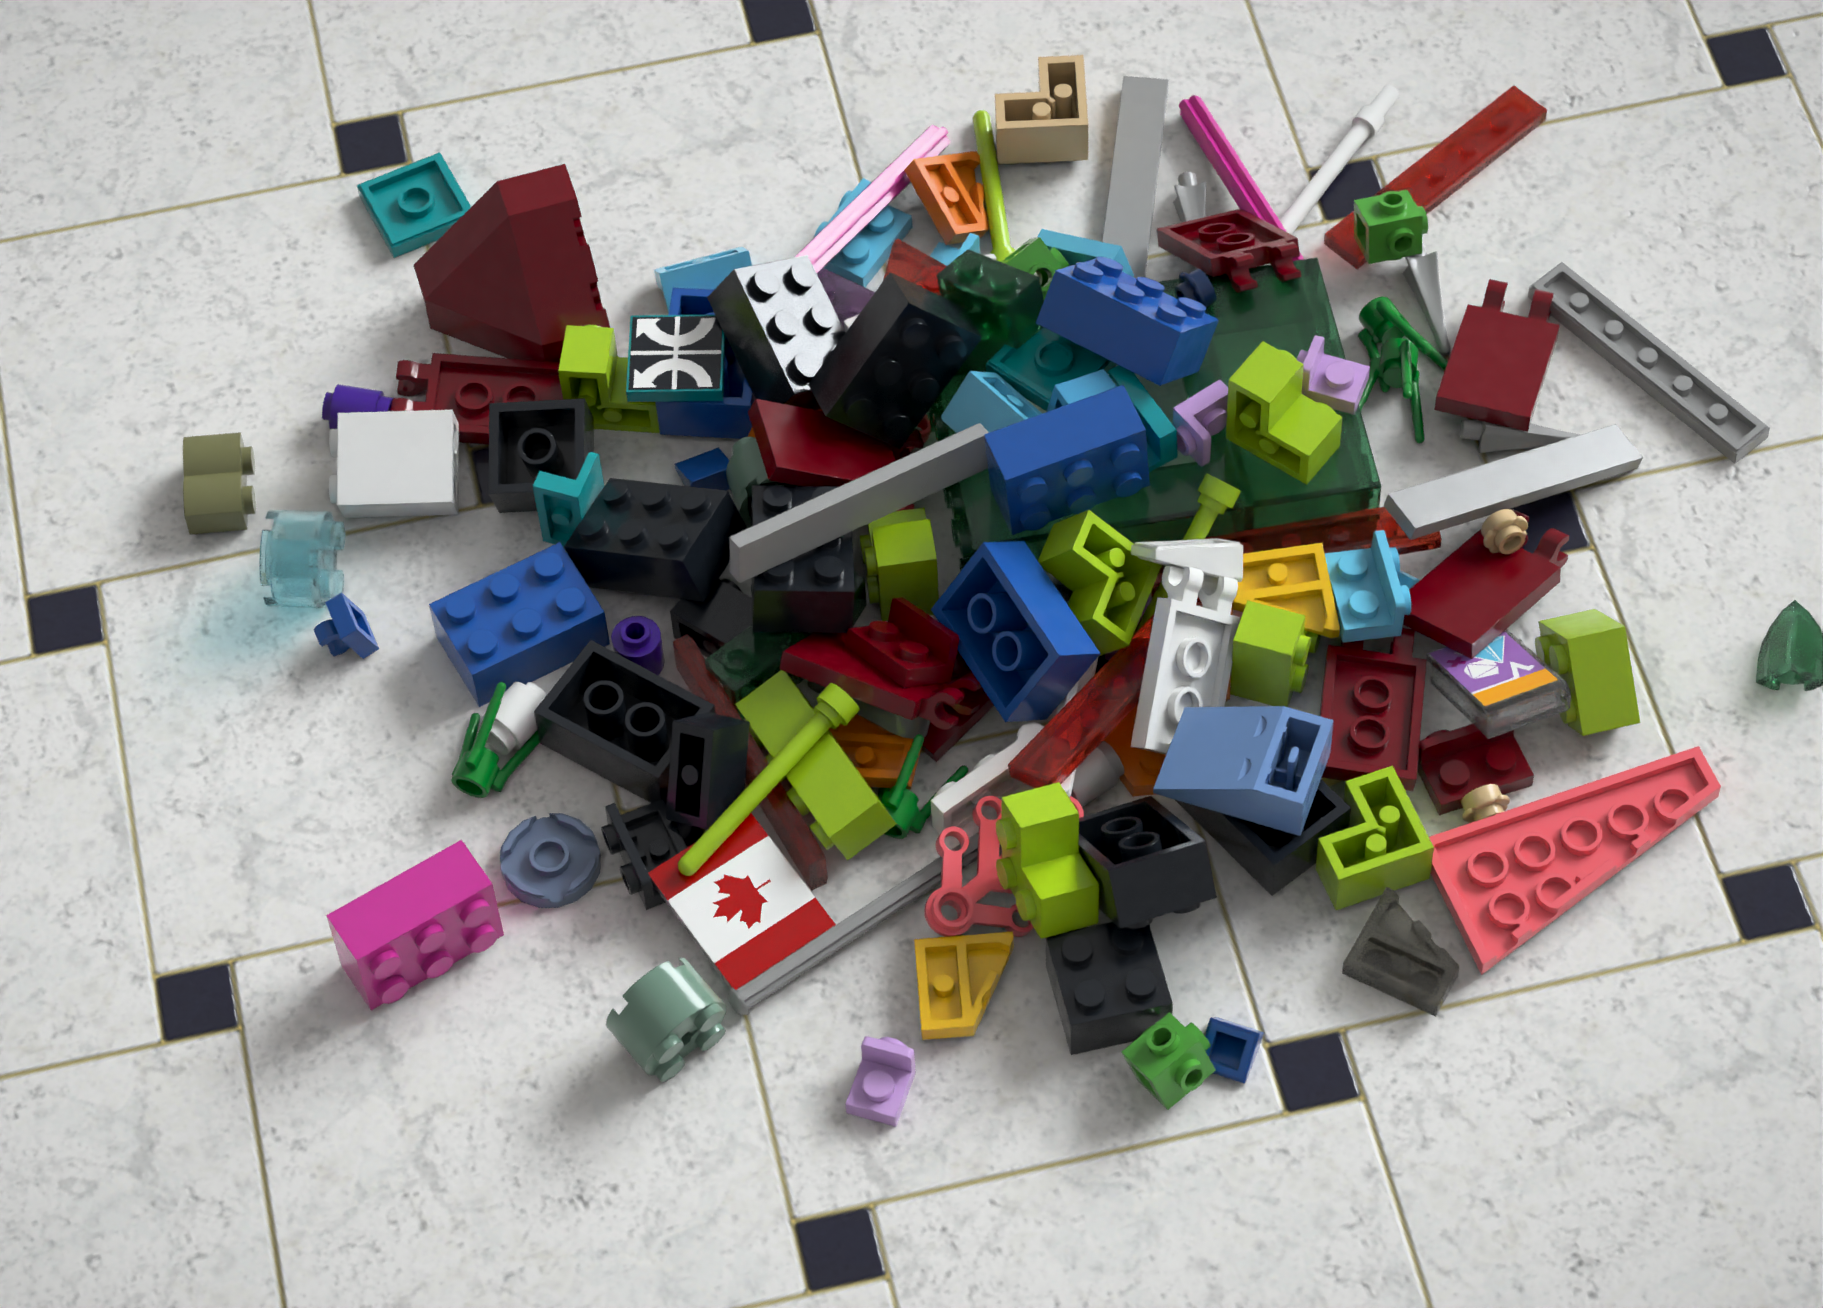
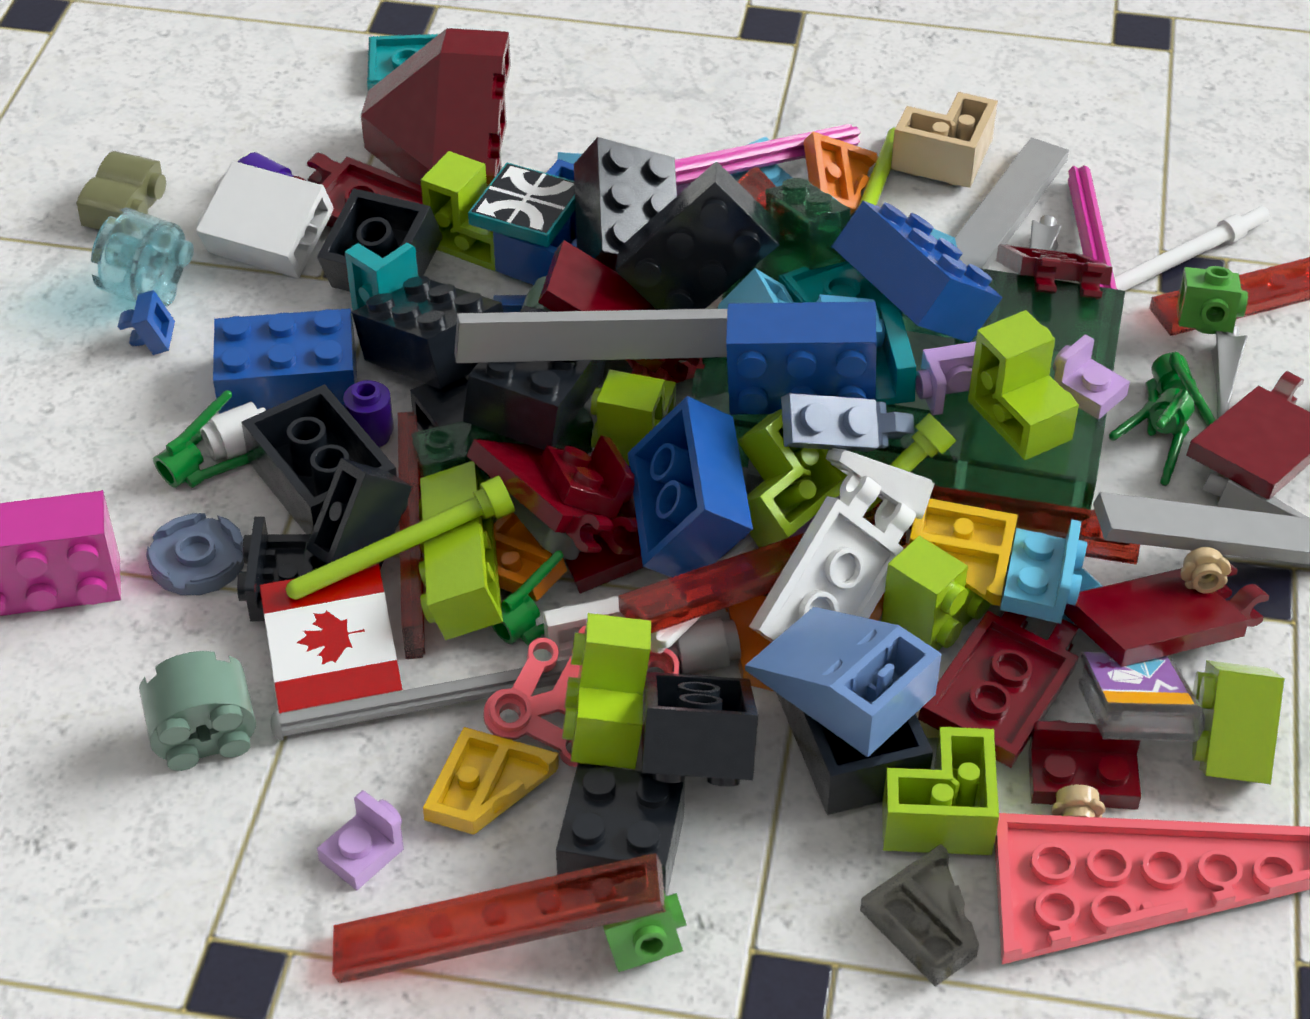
camera: 20 degrees right, 10 degrees down
(1049, 1106) = (498, 918): none -> clear red tile
(1133, 515) = (840, 423): none -> hinge
(1196, 287) = (1001, 275): dark blue plate -> none
(1232, 1048) = (712, 939): blue slope -> none

